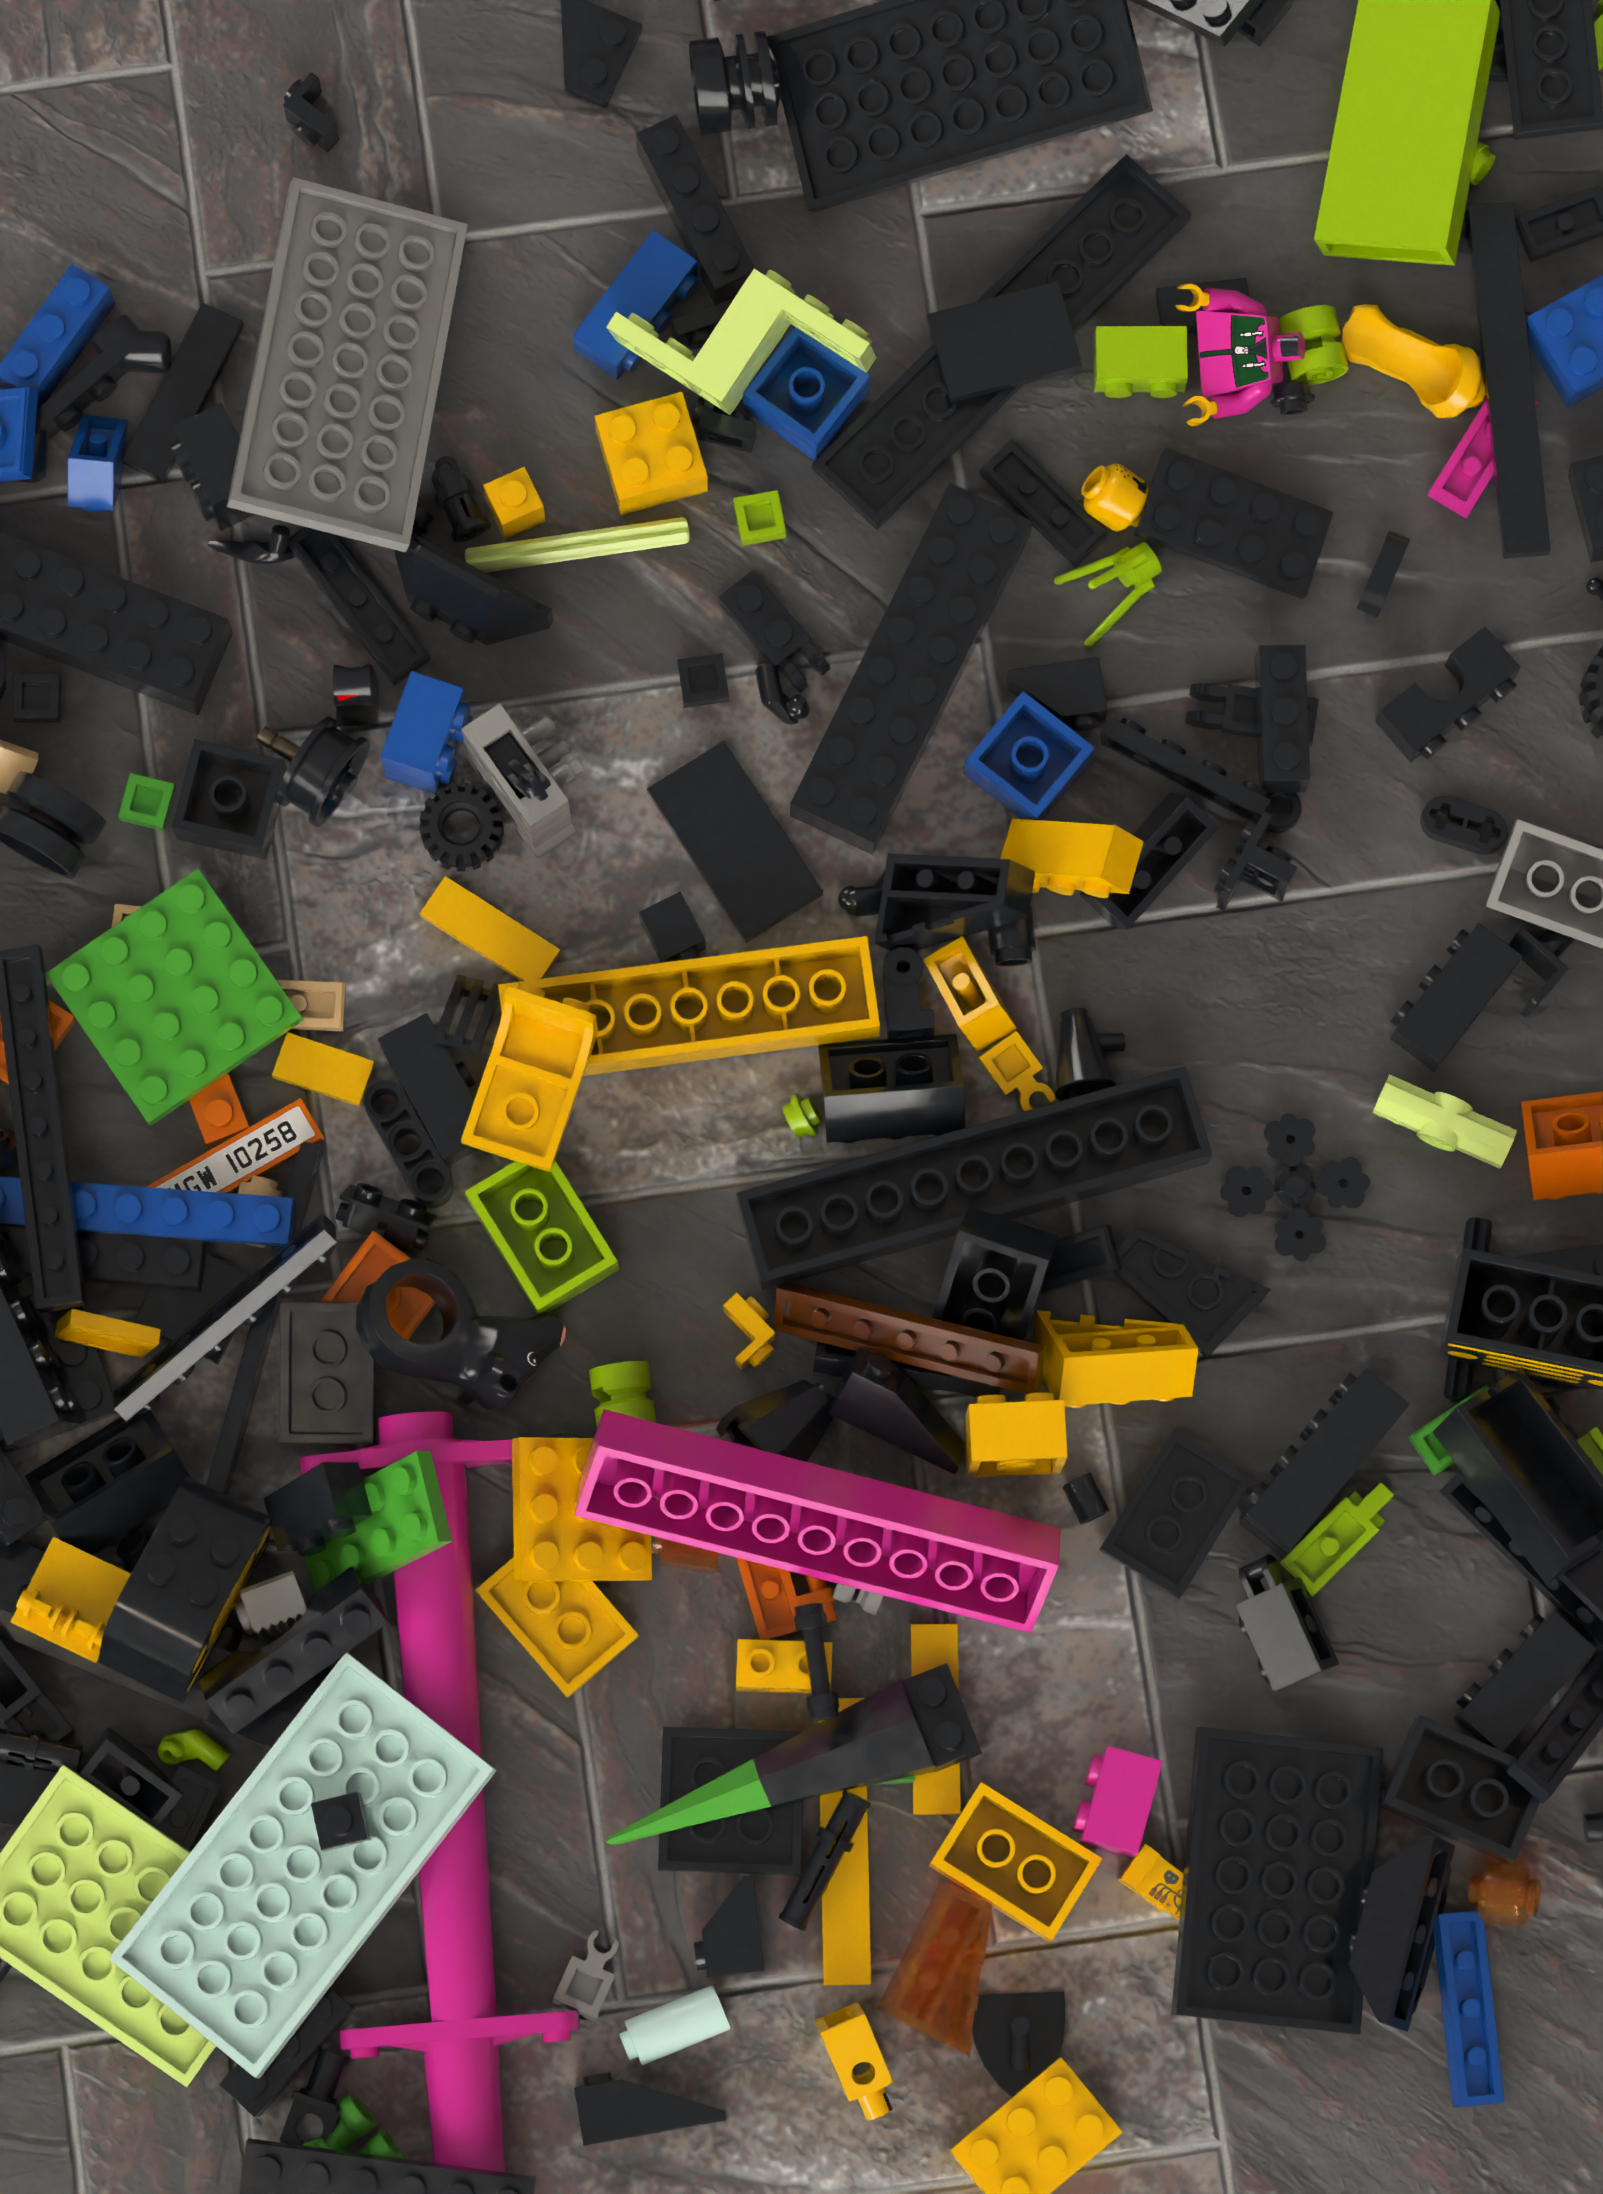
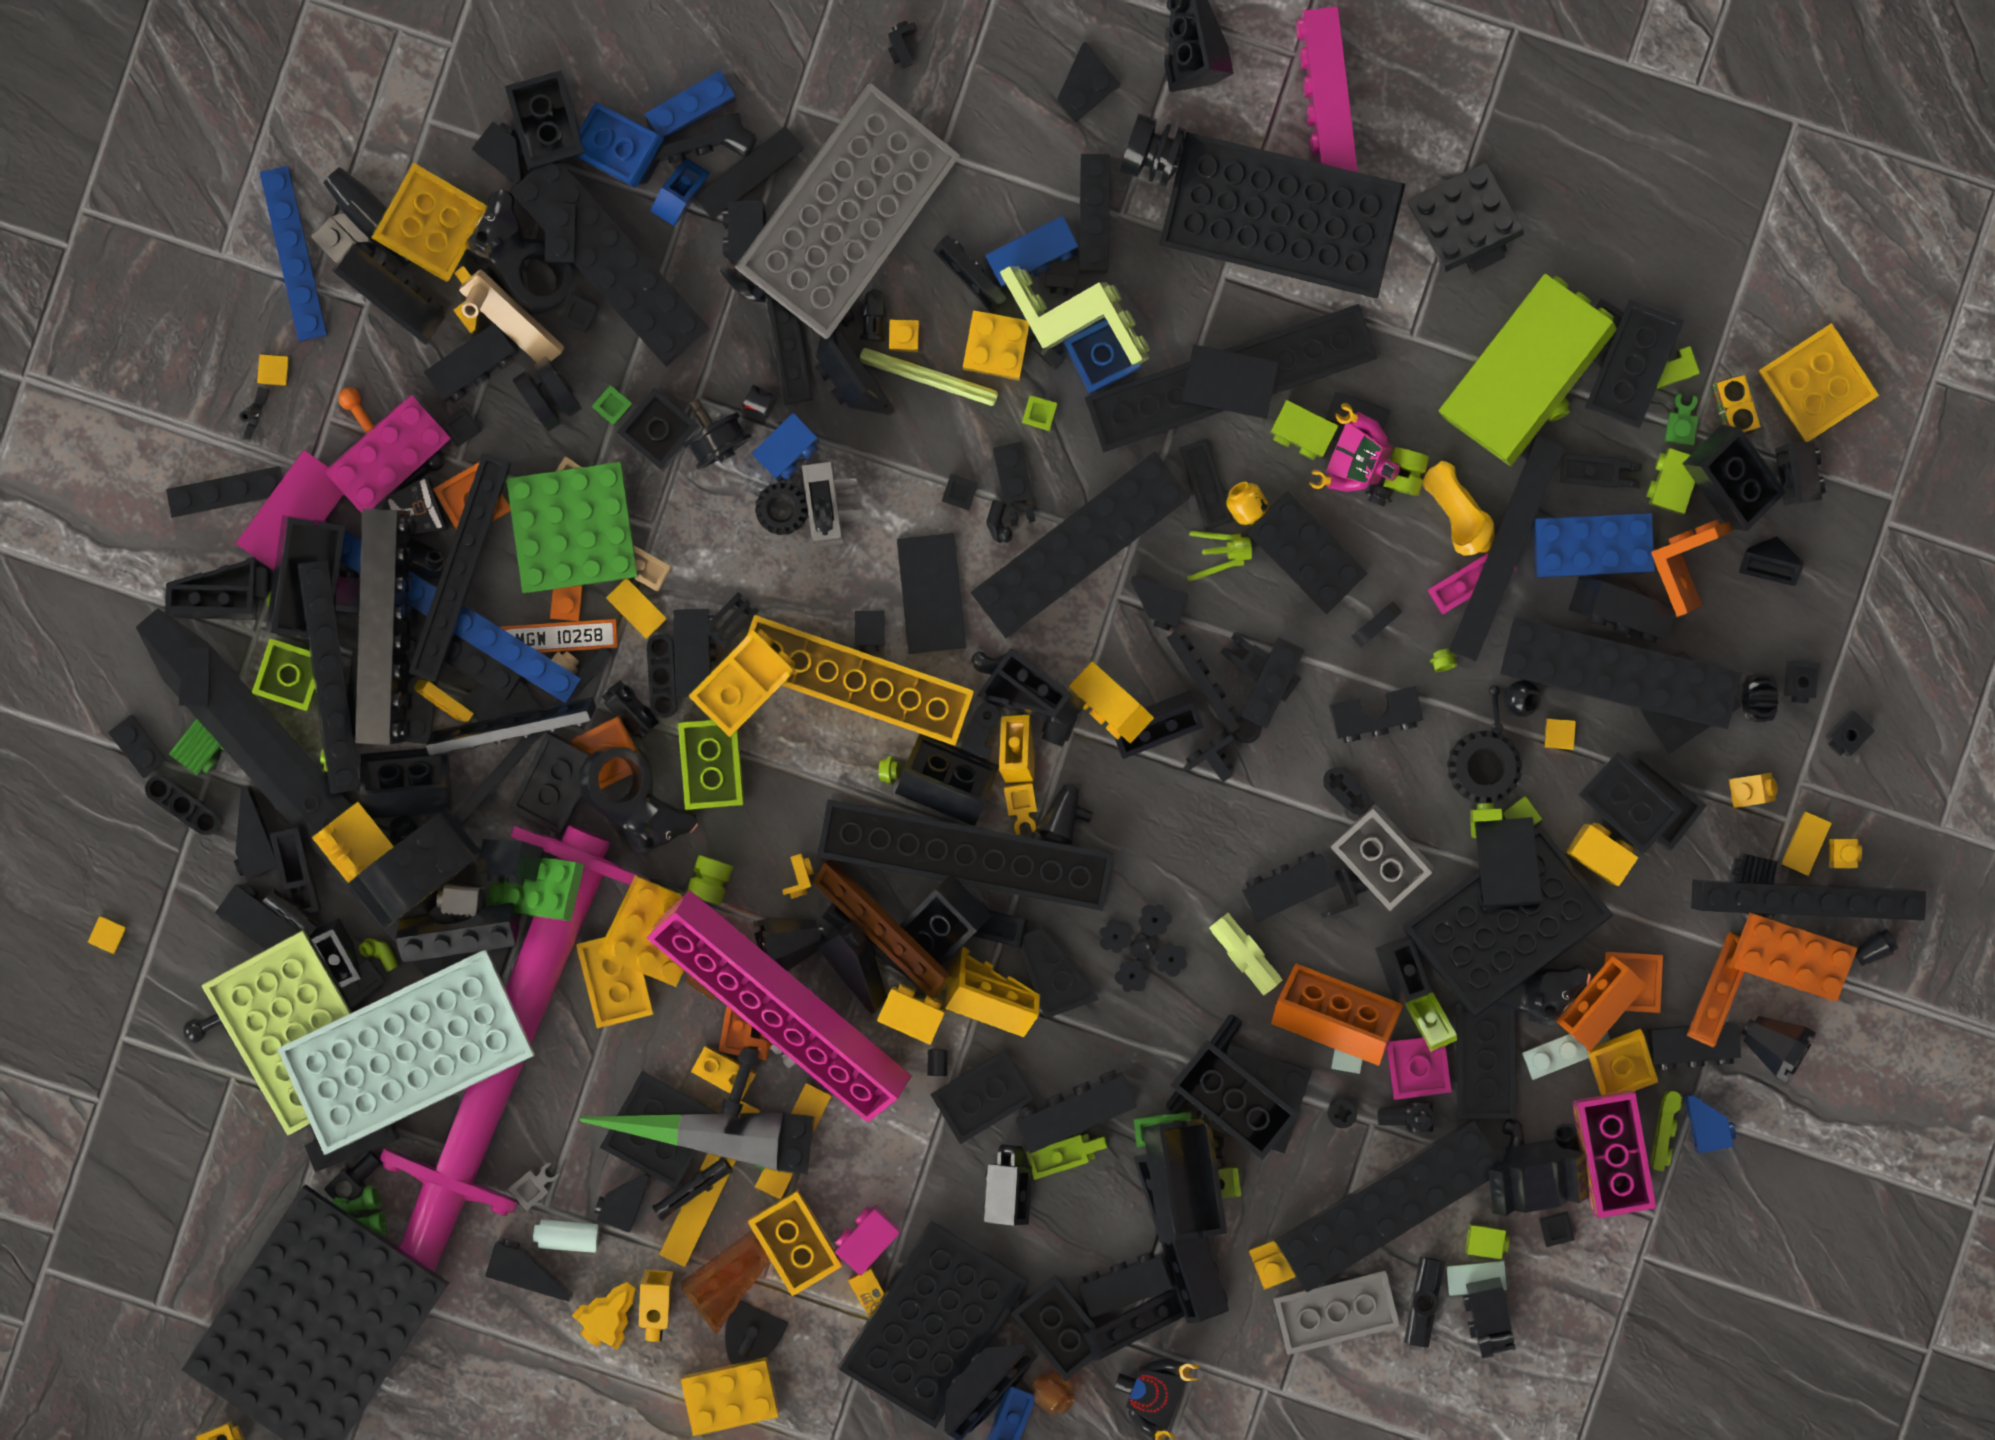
camera: 30 degrees right, 10 degrees up
(340, 1821) = (436, 1041): black plate -> none
(489, 932) = (768, 577): yellow tile -> none
(562, 375) = (970, 273): none -> black plate
(793, 2117) = (606, 1316): none -> yellow rock
(1028, 759) = (1118, 633): blue brick -> none
(1503, 578) = (1444, 660): none -> lime plate

